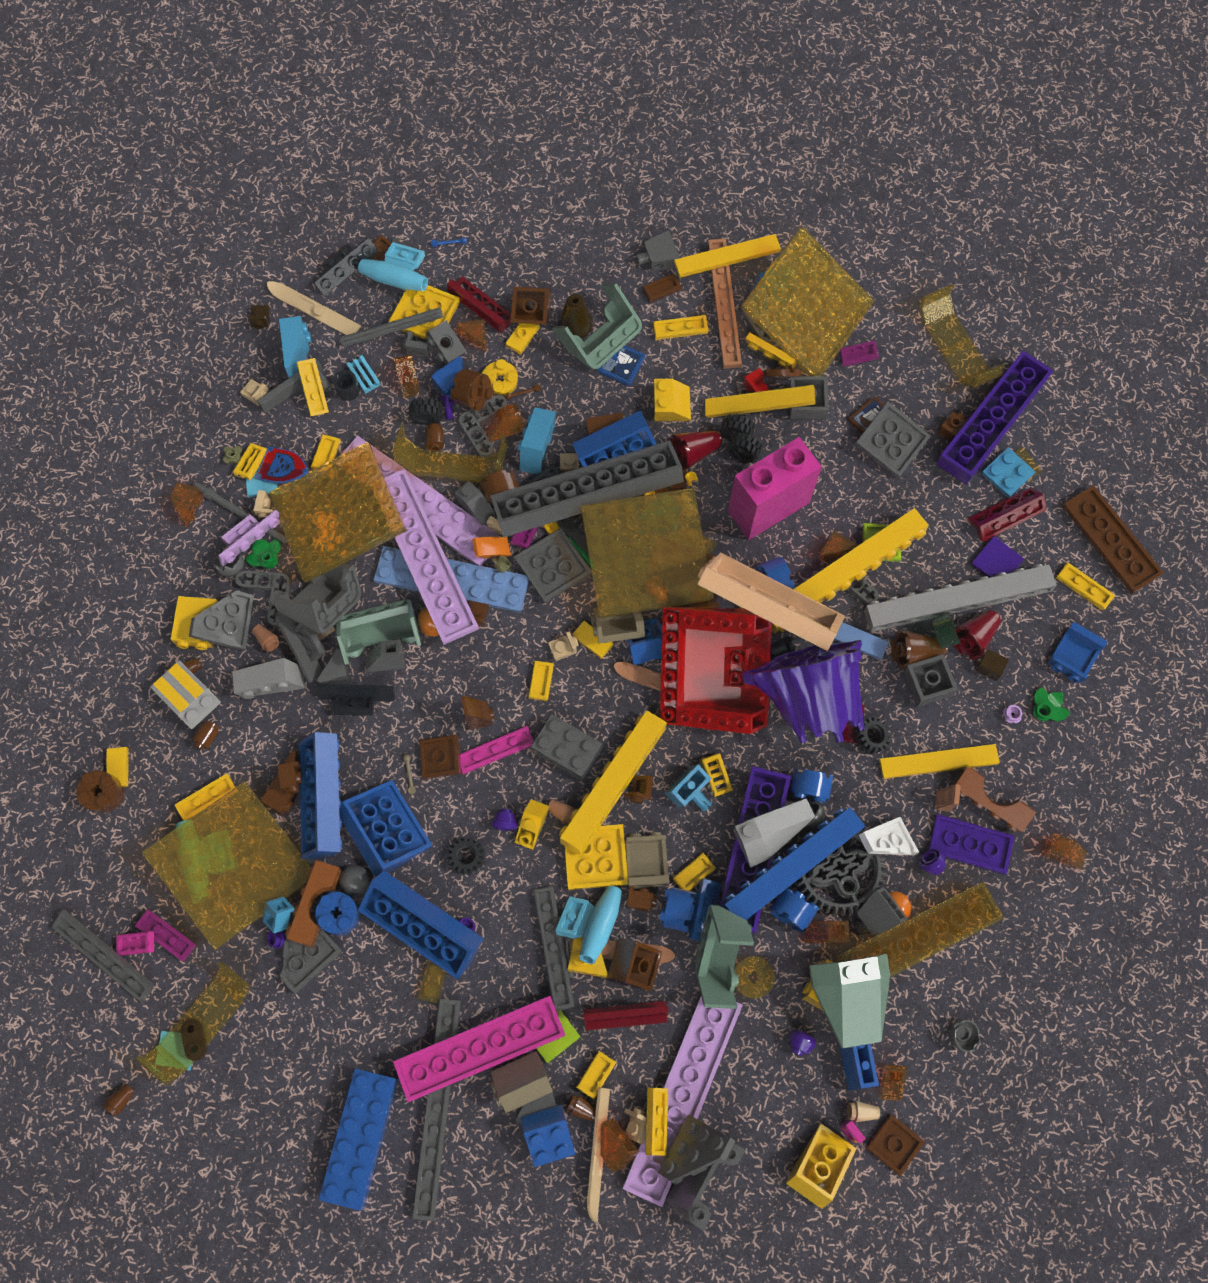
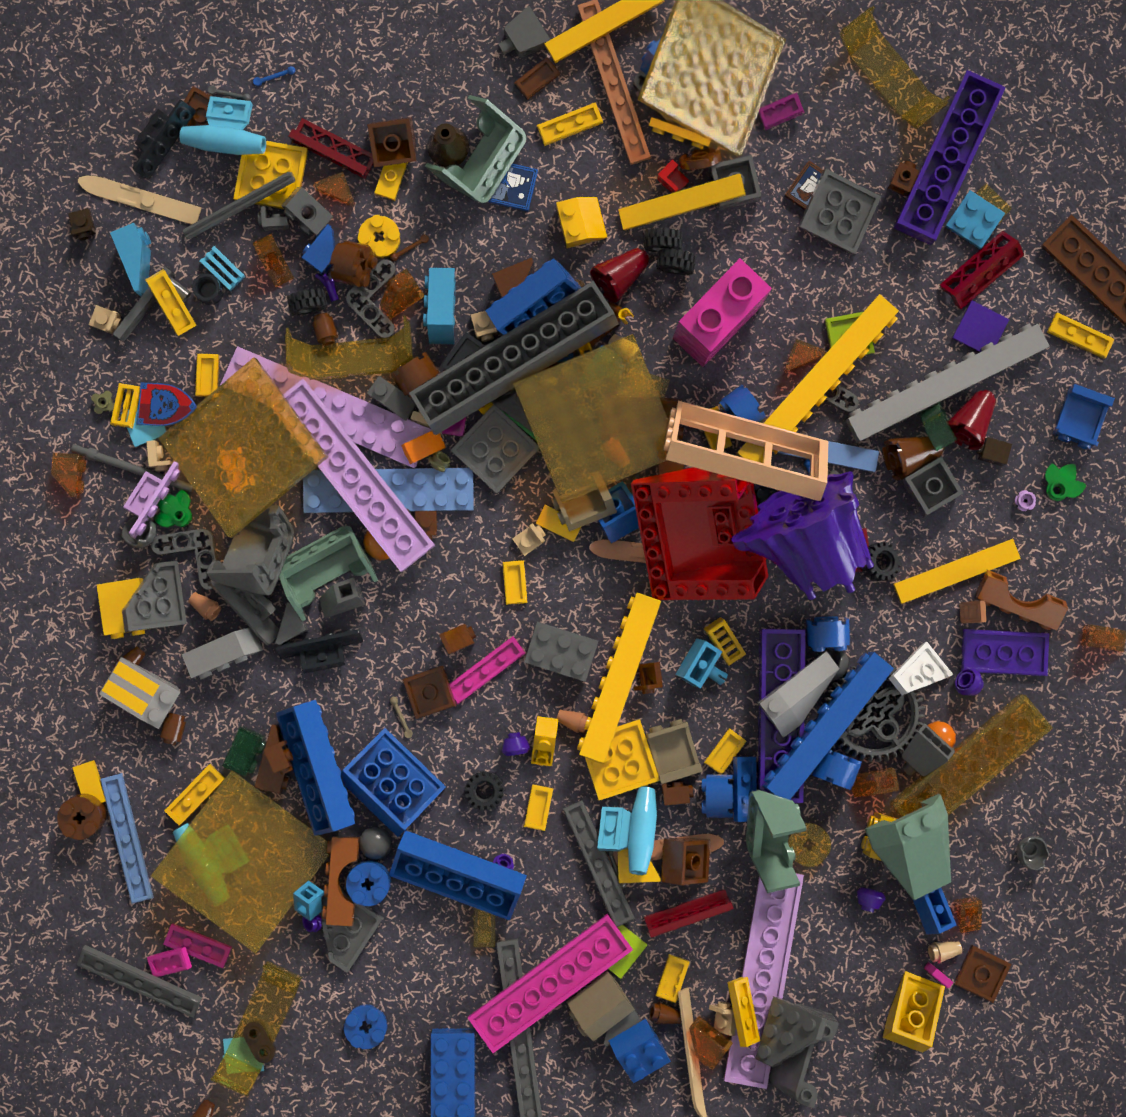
camera: 15 degrees left, 15 degrees up
(134, 823) = (126, 838): none -> medium blue tile
(261, 769) = (244, 751): none -> clear green brick
(305, 1059) = (360, 1038): none -> blue plate
(511, 884) = (538, 807): none -> yellow tile

